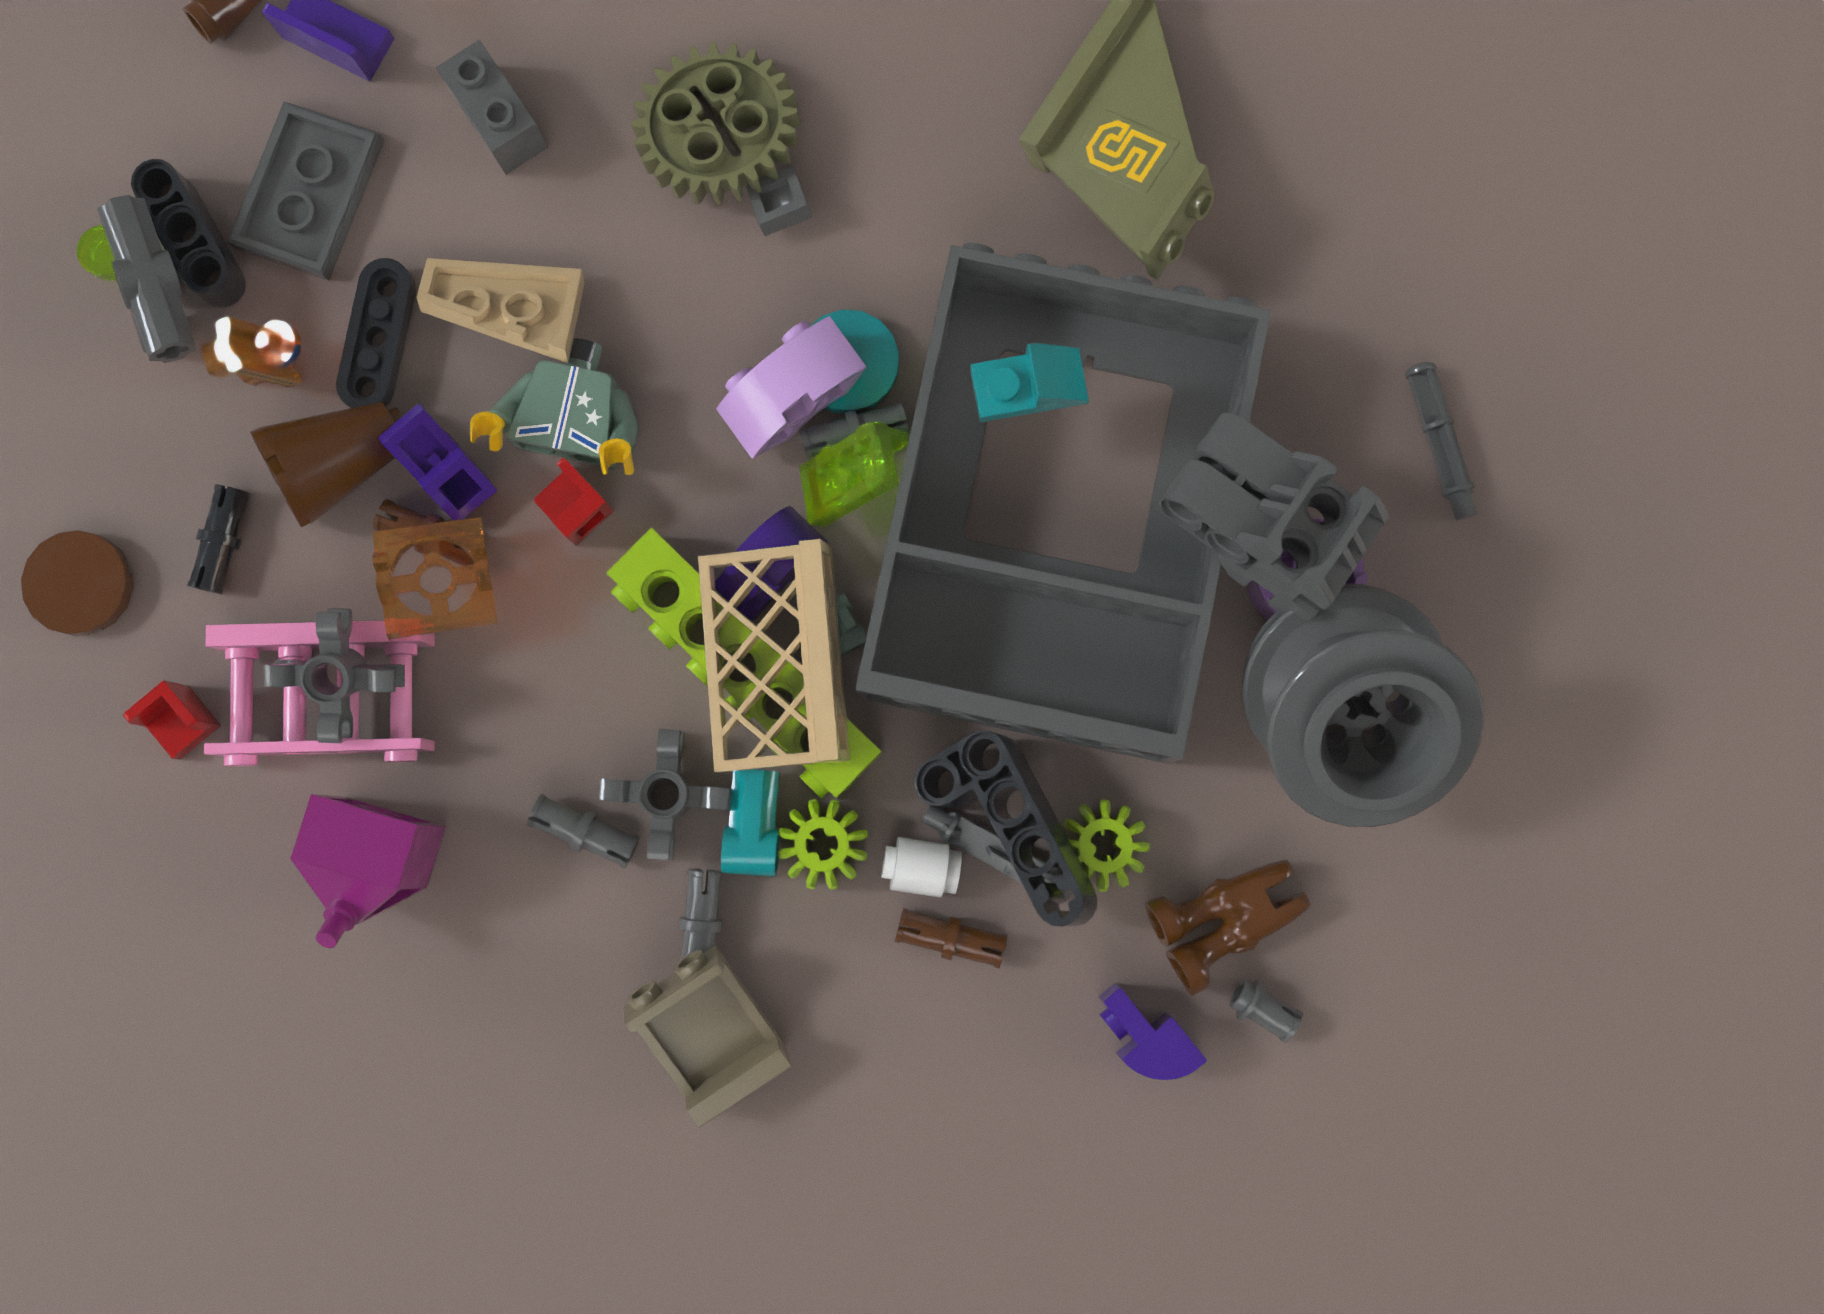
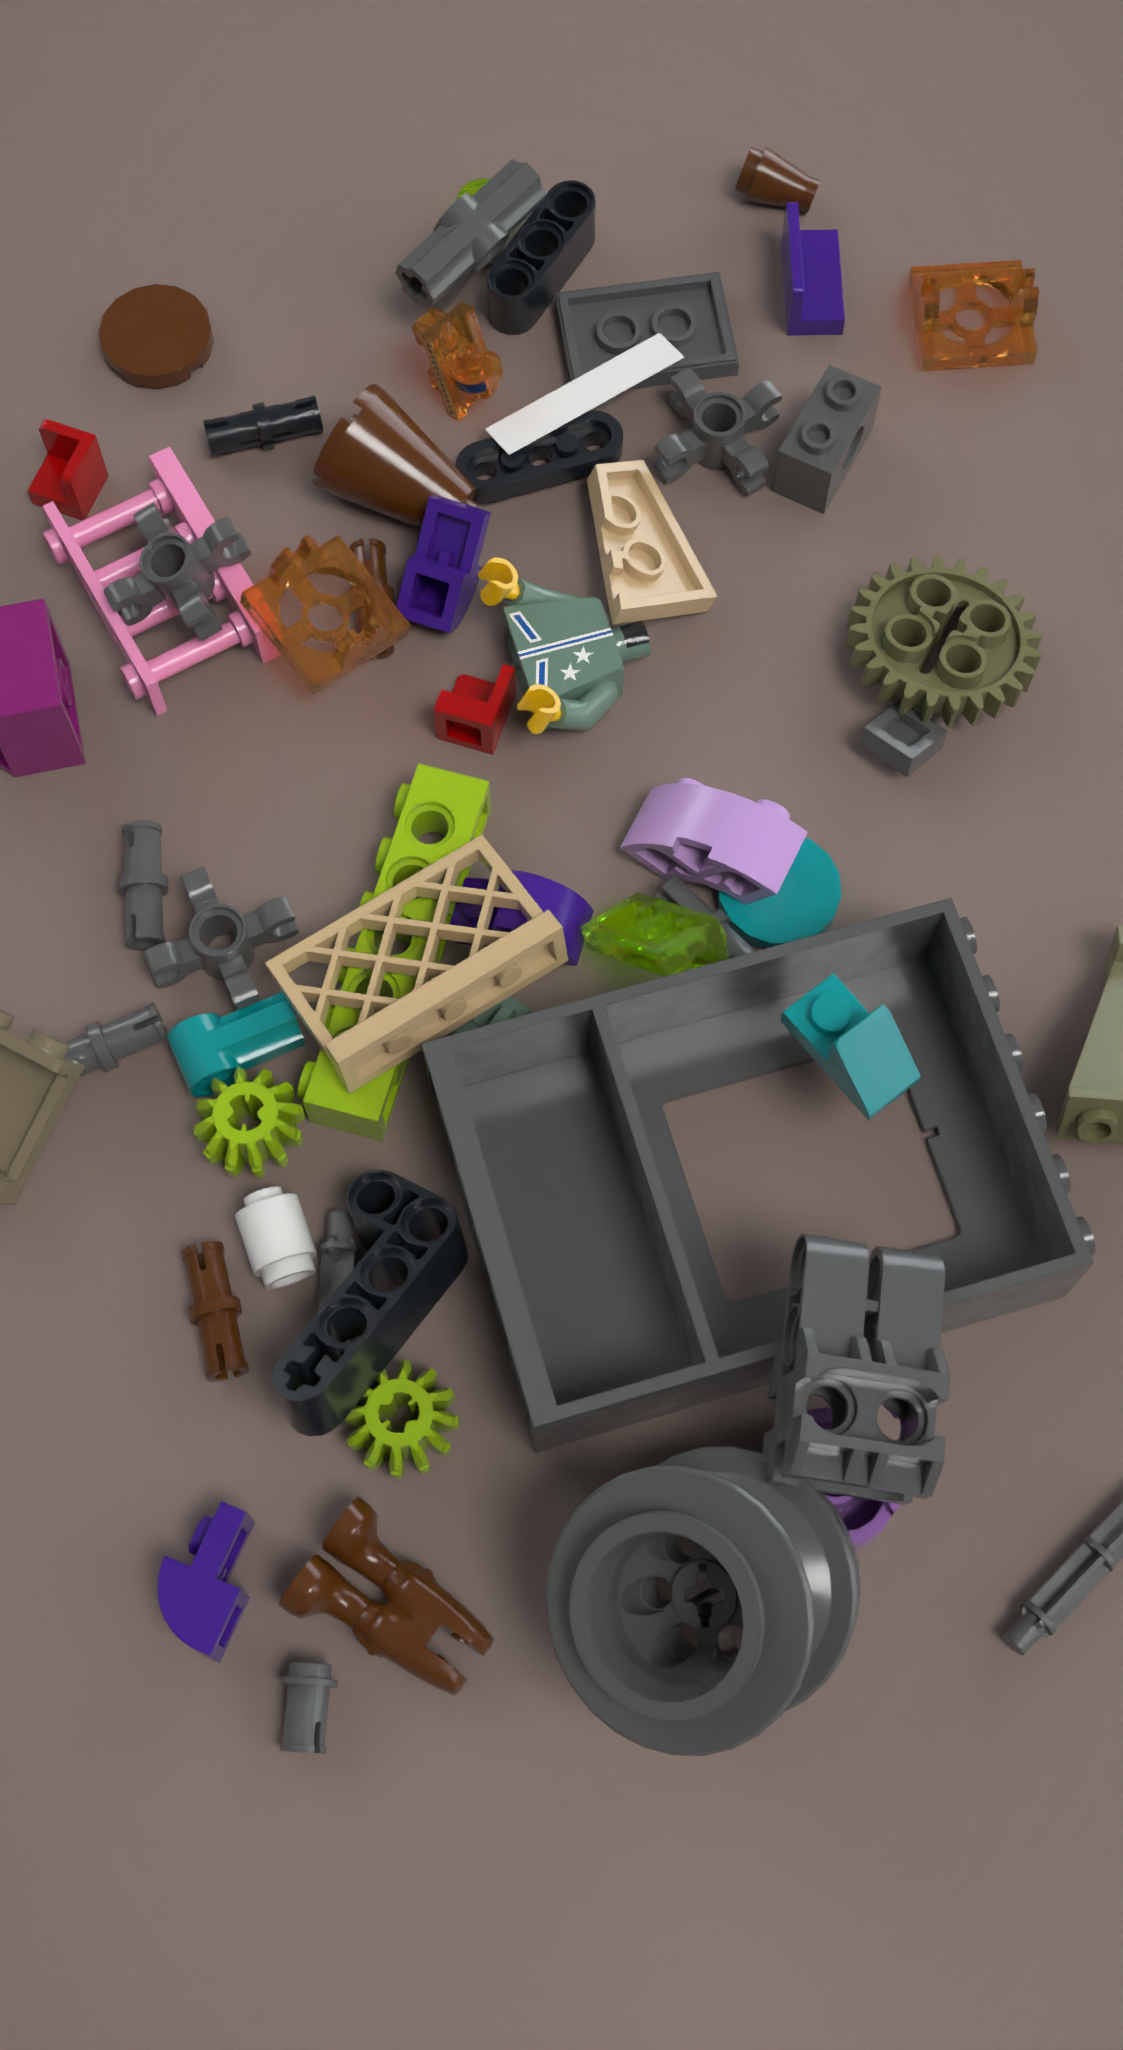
camera: 60 degrees right, 15 degrees down
(340, 270) = (584, 393): none -> white sticker
(431, 165) = (717, 449): none -> dark grey pin

